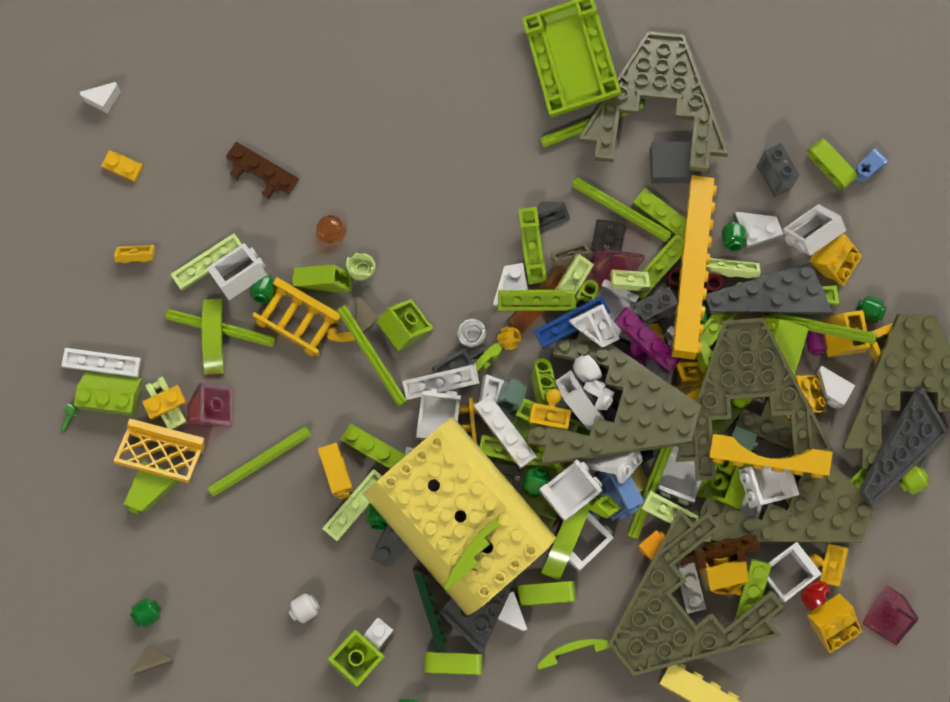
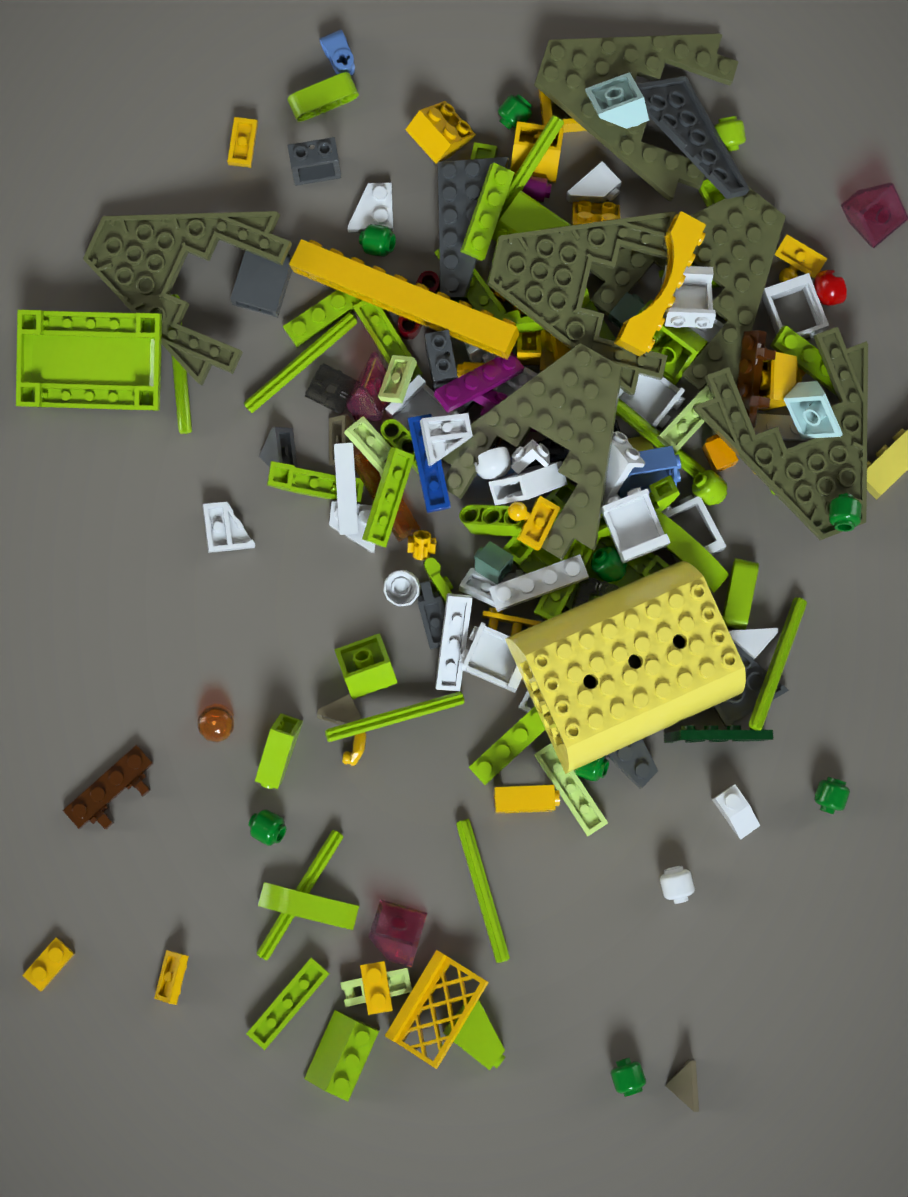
camera: 75 degrees left, 5 degrees up
(72, 411) = (349, 1108): bright green hand -> none
(101, 362) = (300, 1055): white plate -> none
(137, 342) = (288, 1003): none -> lime plate
(197, 267) = (210, 887): yellowish green plate -> none
(243, 279) = (252, 846): white window -> none
(298, 298) = (294, 788): yellow fence -> none
(355, 659) = (755, 838): lime slope -> none
(360, 266) = (276, 698): yellowish green hair -> none
(453, 663) = (790, 727): lime beam -> none
(467, 561) = (692, 669): lime slope -> none
(477, 191) = (224, 529): none -> white wing
(499, 638) = (777, 663): none -> lime axle
(534, 269) = (346, 488): none -> white sticker
(550, 659) = (817, 613): lime slope -> none
(623, 544) = (709, 487): none -> lime head
(634, 654) = (845, 512): none -> green head
(707, 604) = (812, 411): none -> light aqua slope
(734, 268) = (417, 251): yellowish green plate -> none
(775, 117) = (242, 142): none -> yellow plate
(783, 308) = (487, 211): none -> lime plate
(818, 215) = (386, 148): white window -> none
(835, 623) = (866, 277): yellow slope -> none
(904, 380) = (619, 101): none -> light aqua slope

